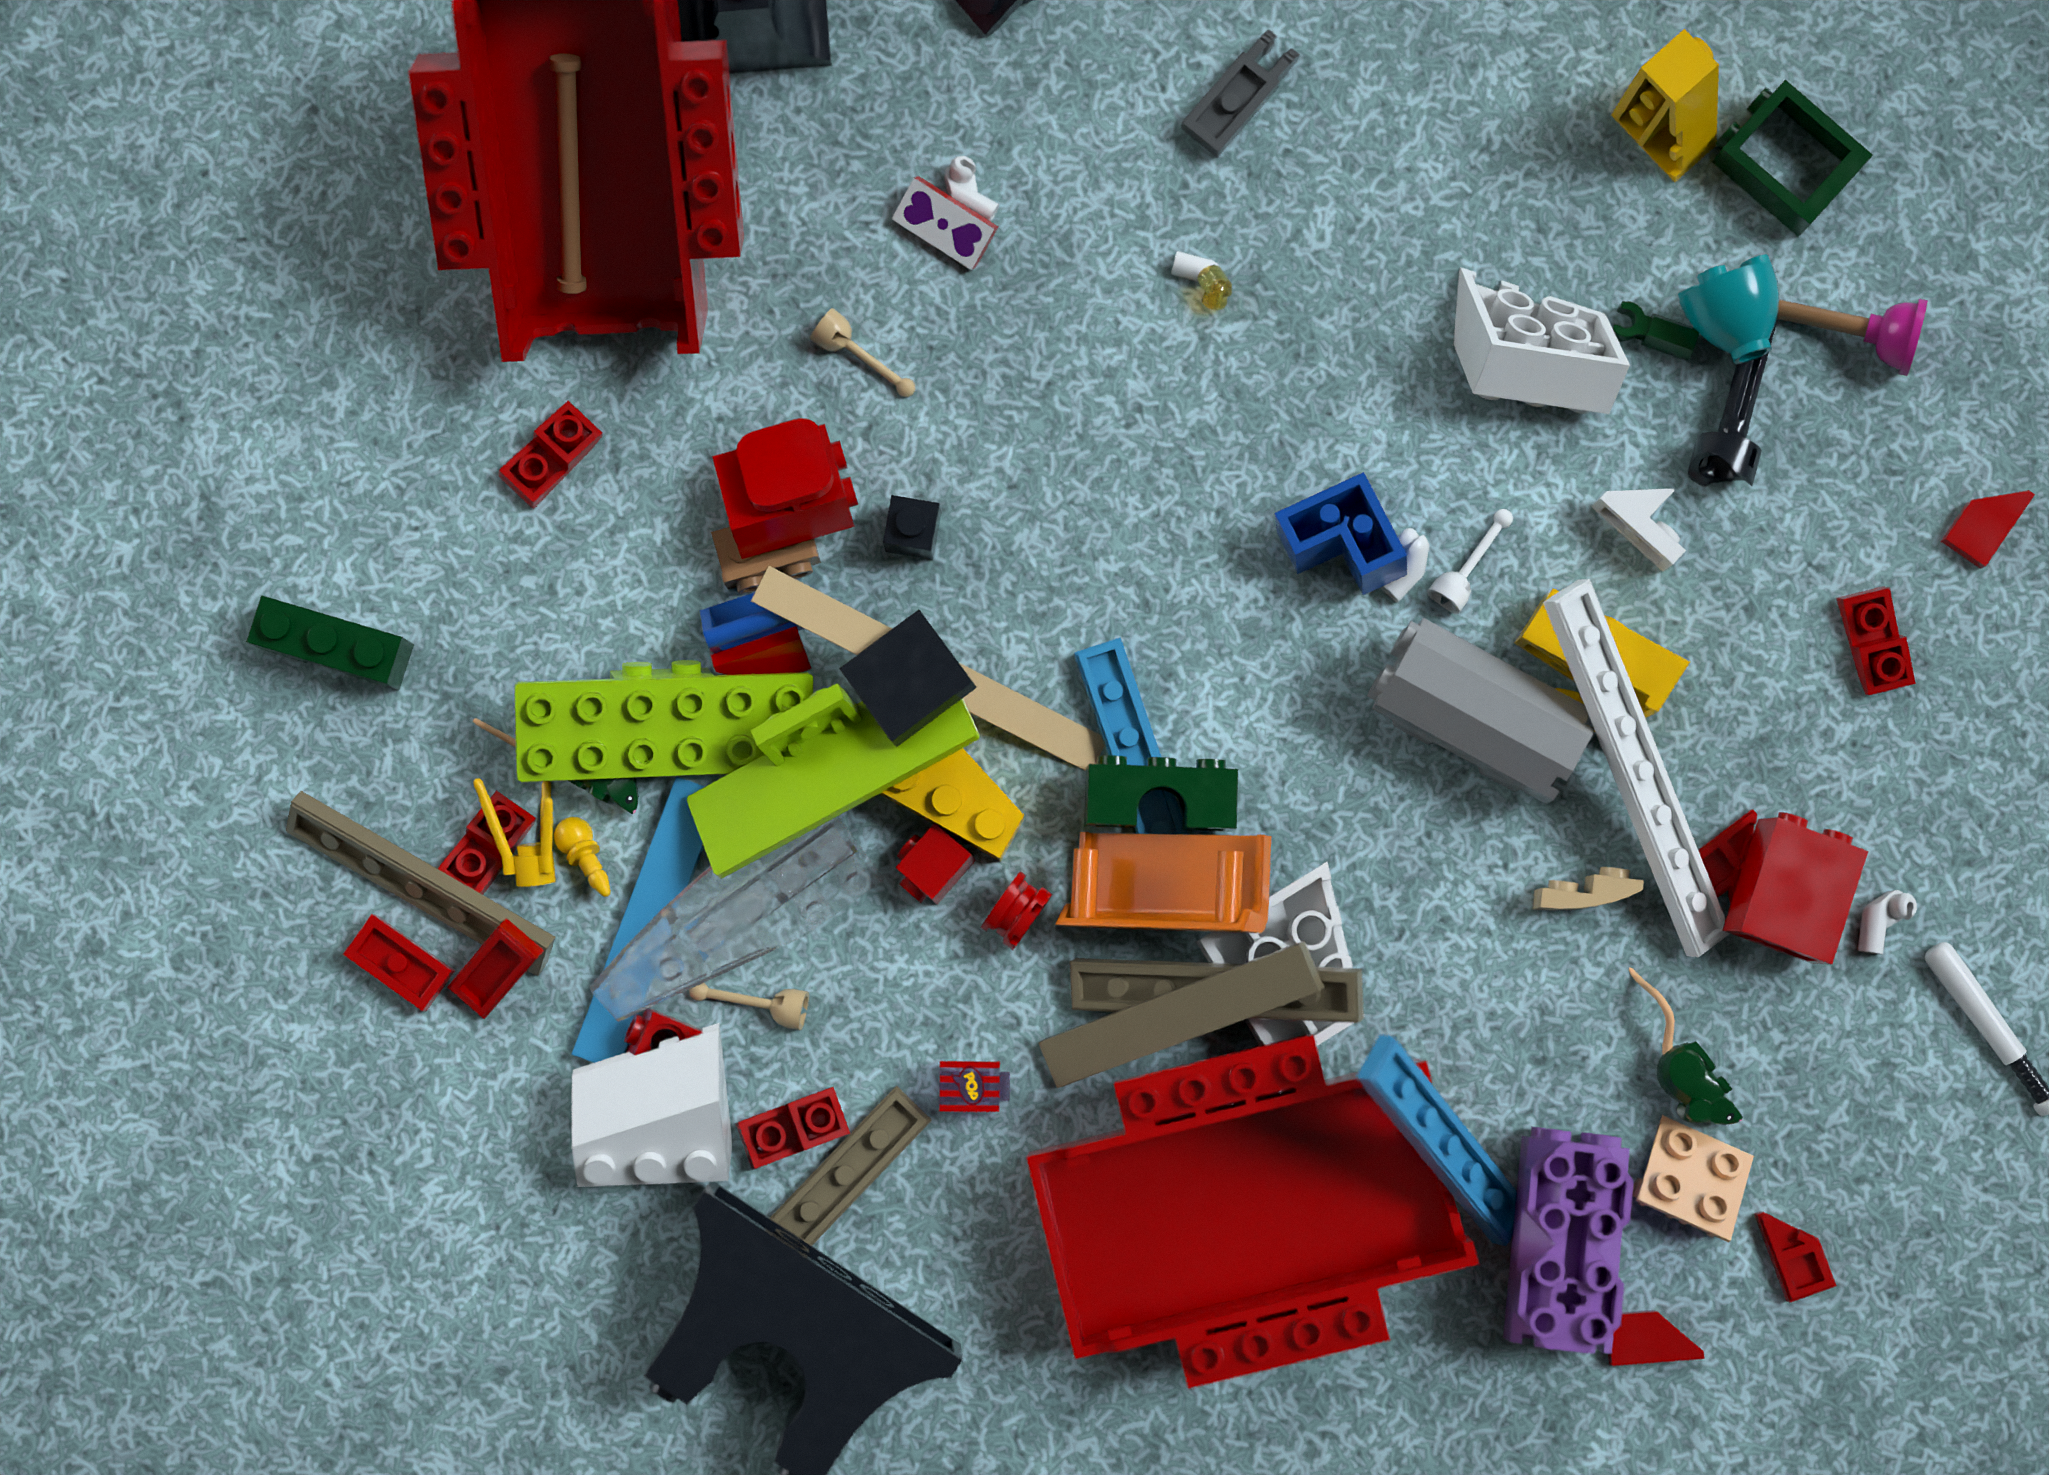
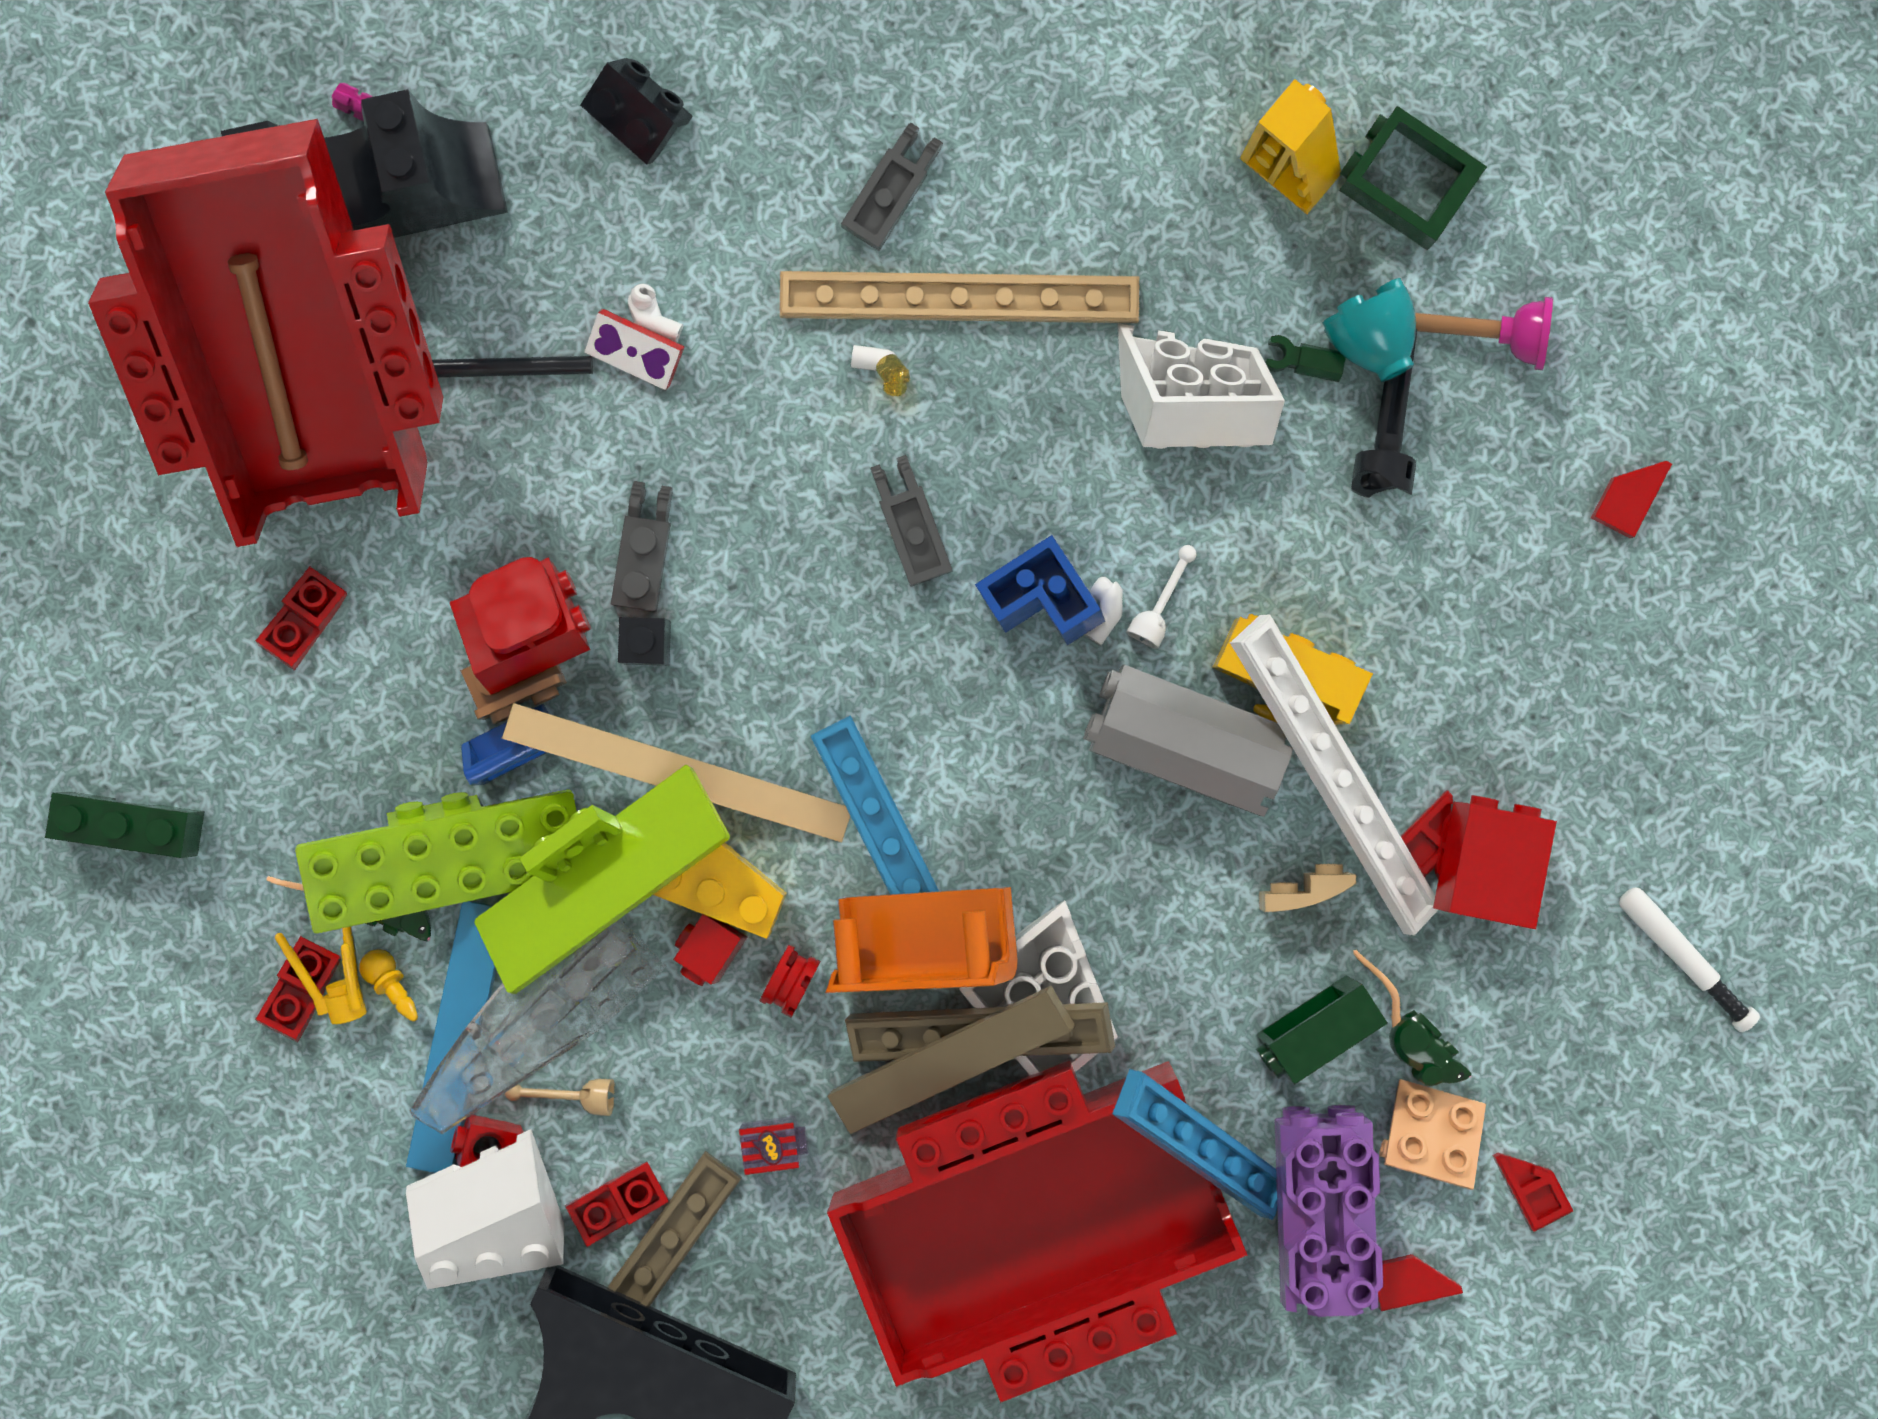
camera: 15 degrees left, 5 degrees up
(399, 962) = (236, 1106): red plate -> none
(406, 875) = (242, 1032): dark tan tile -> none
(495, 968) = (323, 1101): red tile -> none
(767, 655) = (532, 778): red tile -> none
(820, 224) = (513, 366): none -> black bar
(835, 333) = (548, 468): tan hinge -> none
(907, 678) = (657, 789): black tile -> none
(922, 436) = (642, 552): none -> dark grey hinge
(1204, 792) = (865, 858): dark green arch -> none
(1213, 448) = (912, 526): none -> dark grey hinge
(1296, 217) = (959, 297): none -> tan tile
(1584, 1042) = (1319, 1030): none -> dark green window
(1630, 515) = (1304, 536): white slope -> none
(1875, 642) = (1541, 620): red slope -> none
(1882, 914) = (1574, 871): white arm -> none

